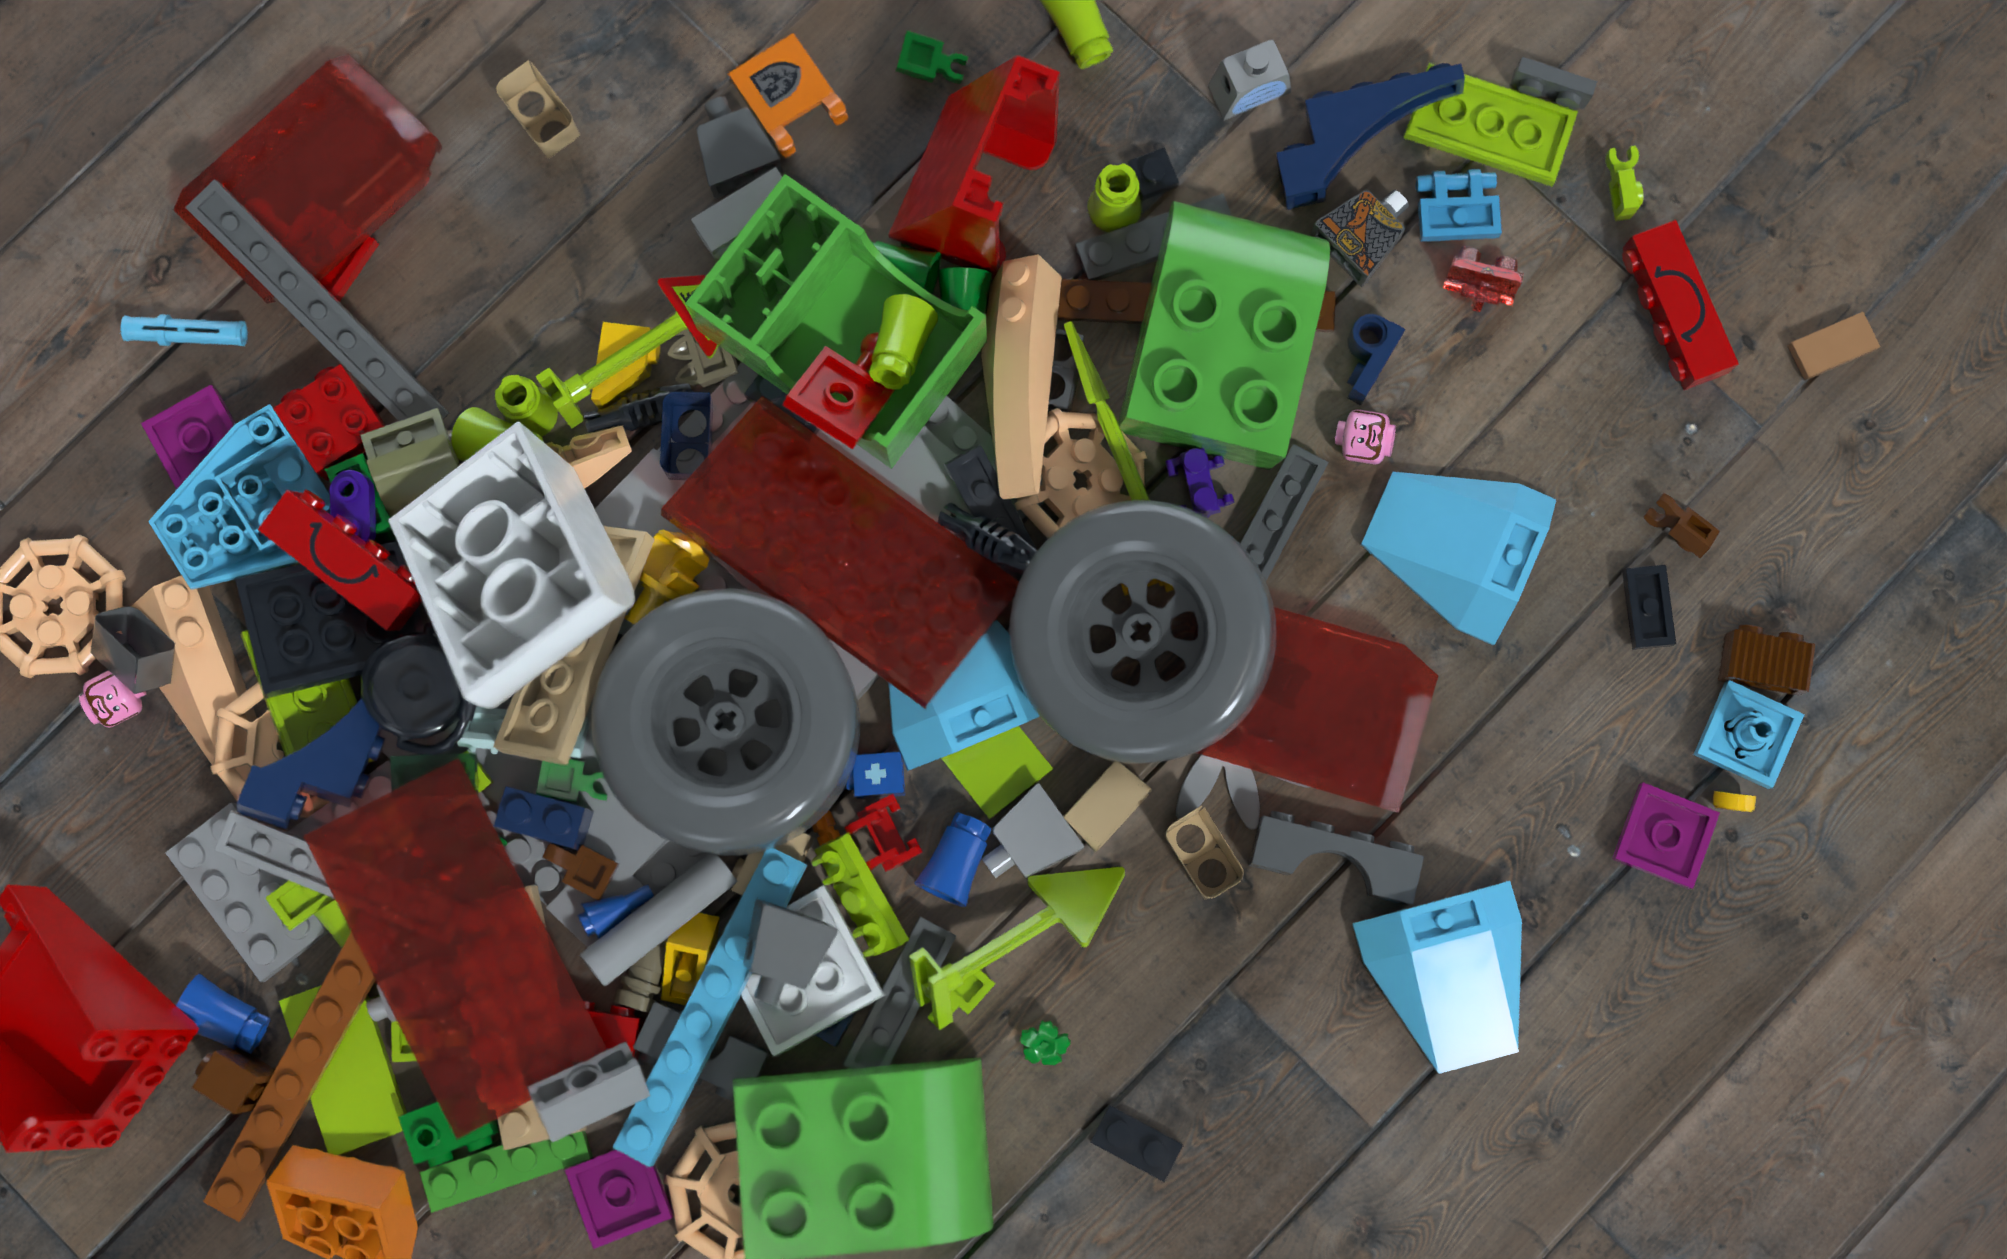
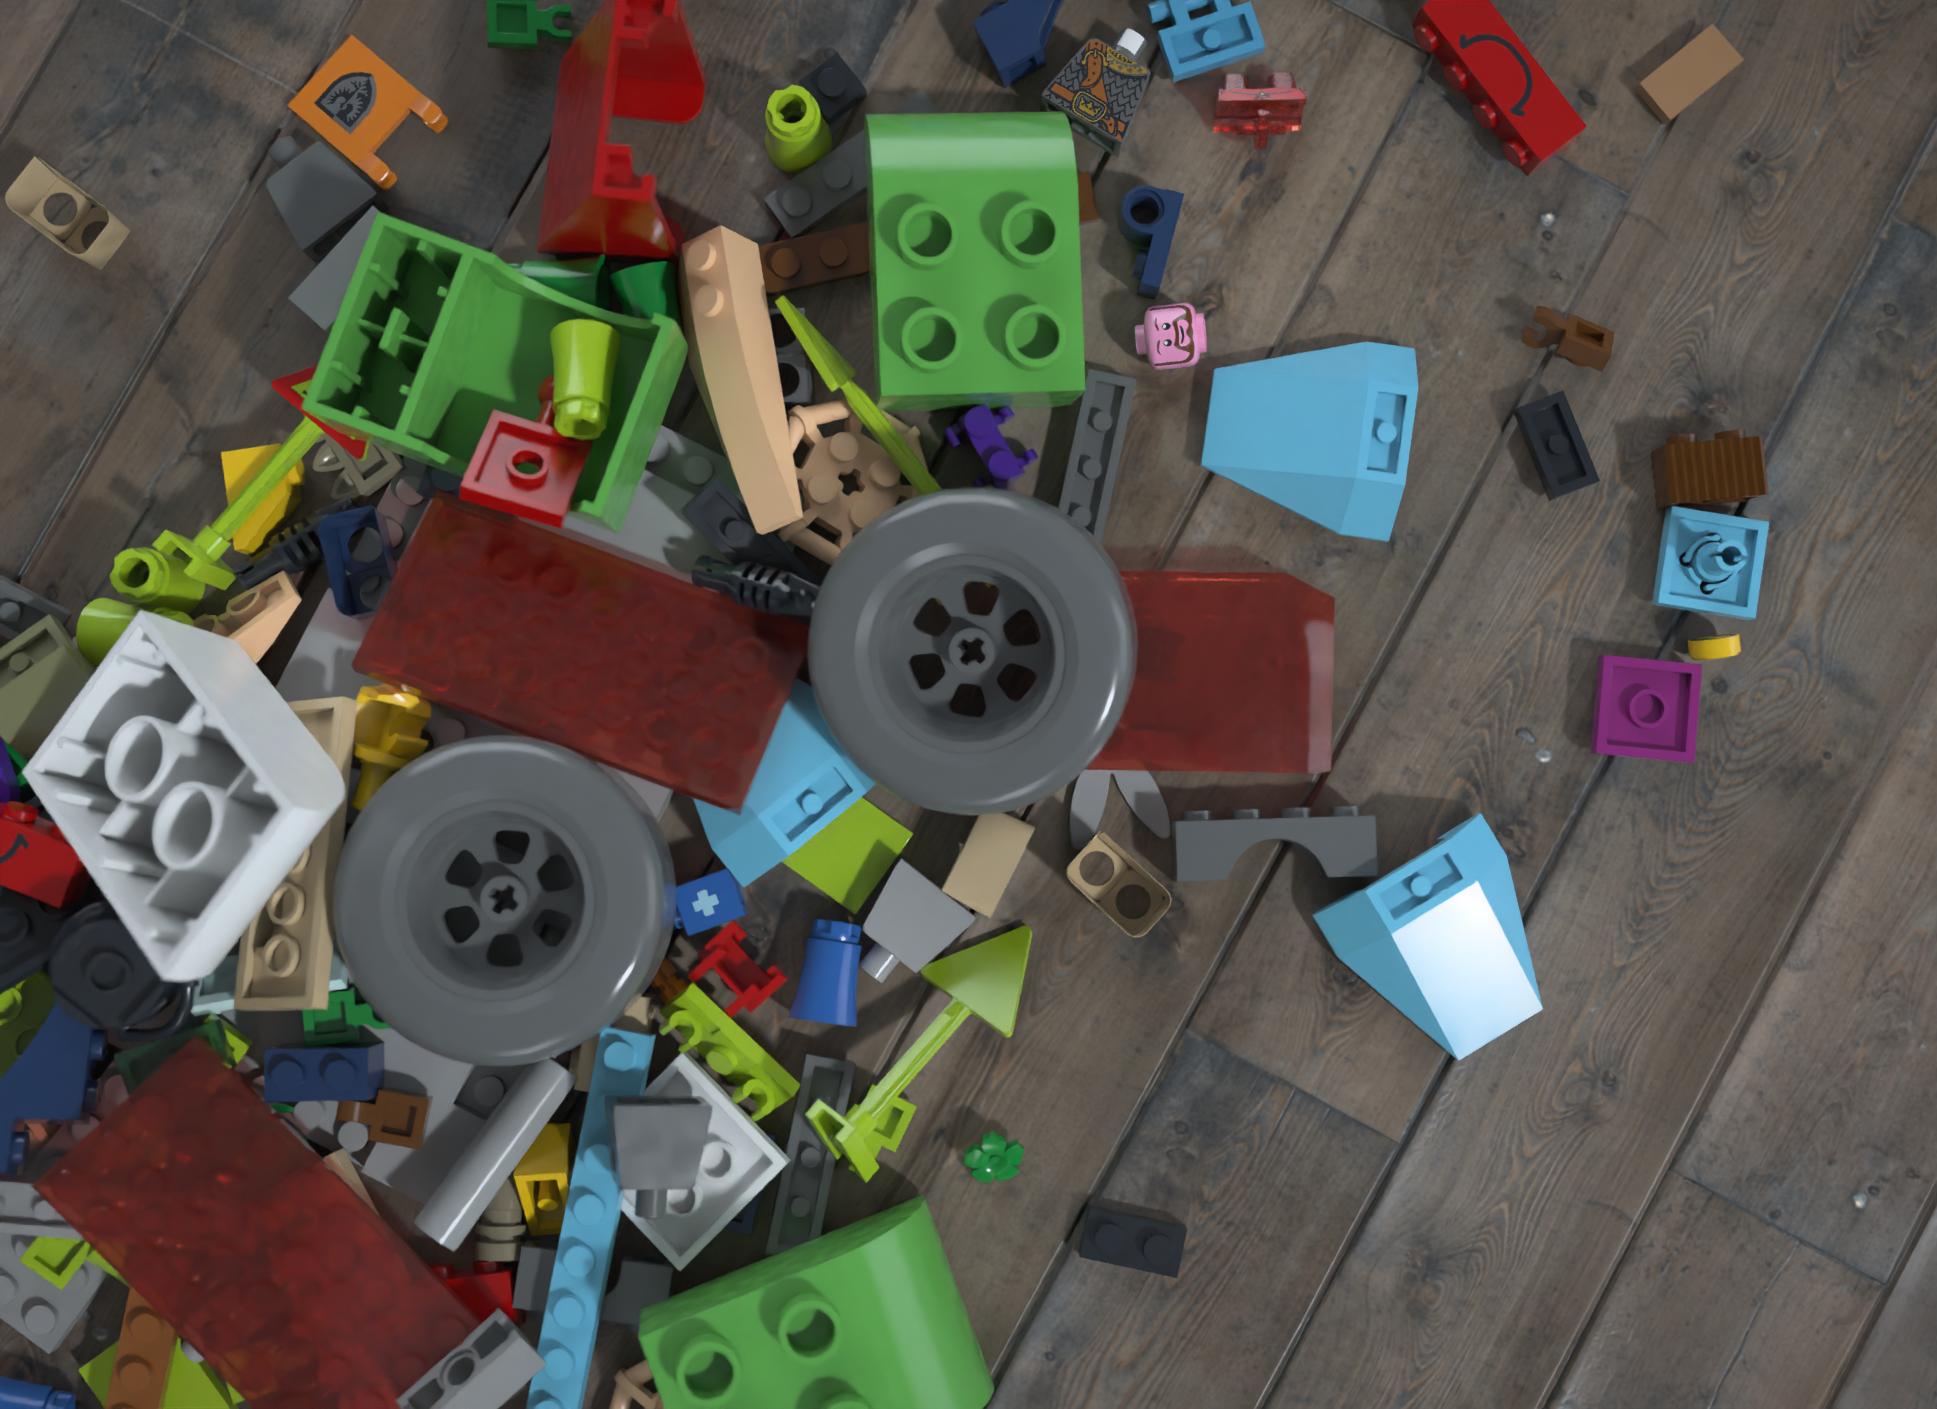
camera: 25 degrees left, 5 degrees up
(608, 912) = (434, 1160): blue cone -> none

